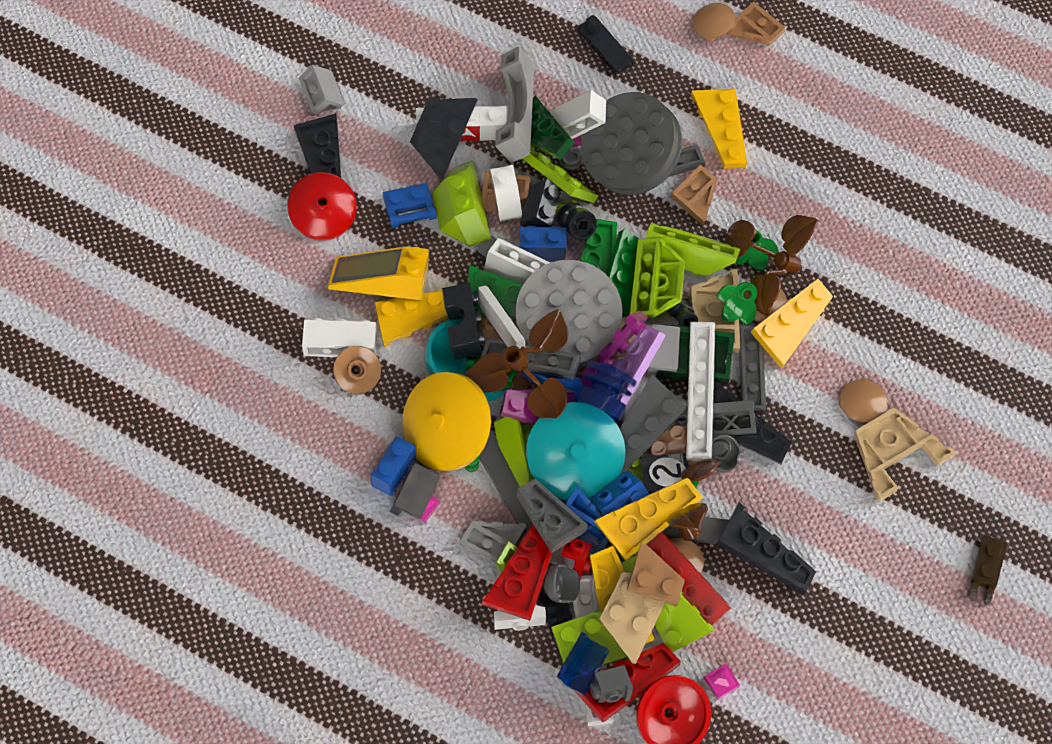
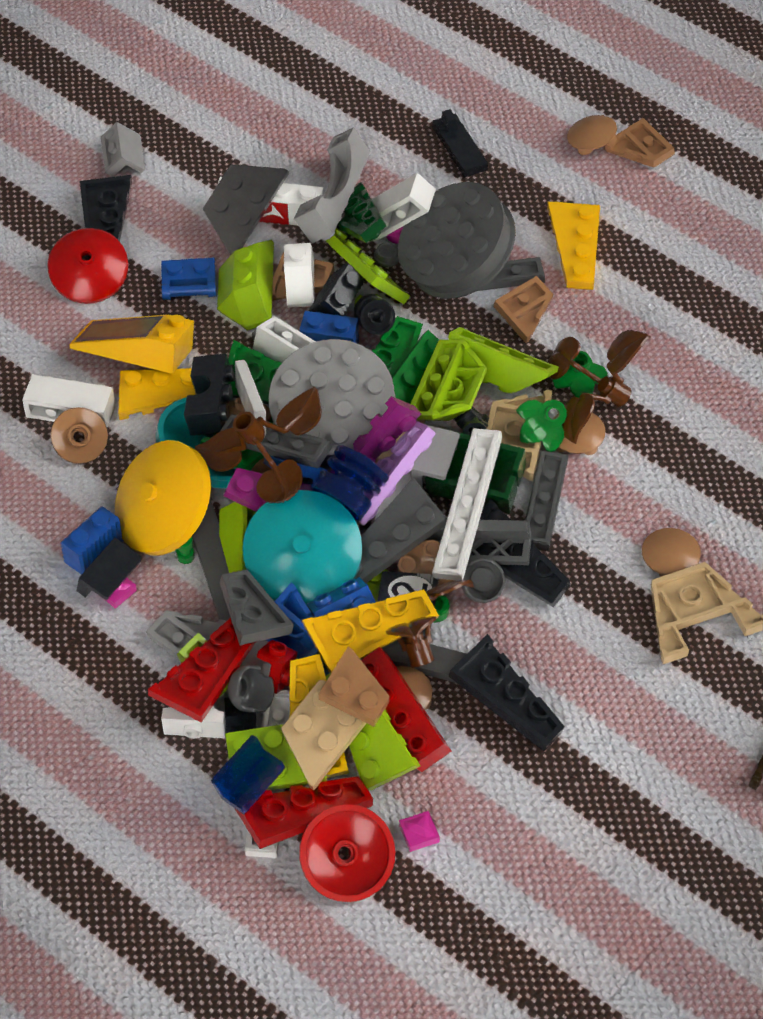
camera: 15 degrees right, 10 degrees down
(611, 685) = (277, 804): dark grey brick -> none
(790, 323) = (603, 455): yellow wing -> none

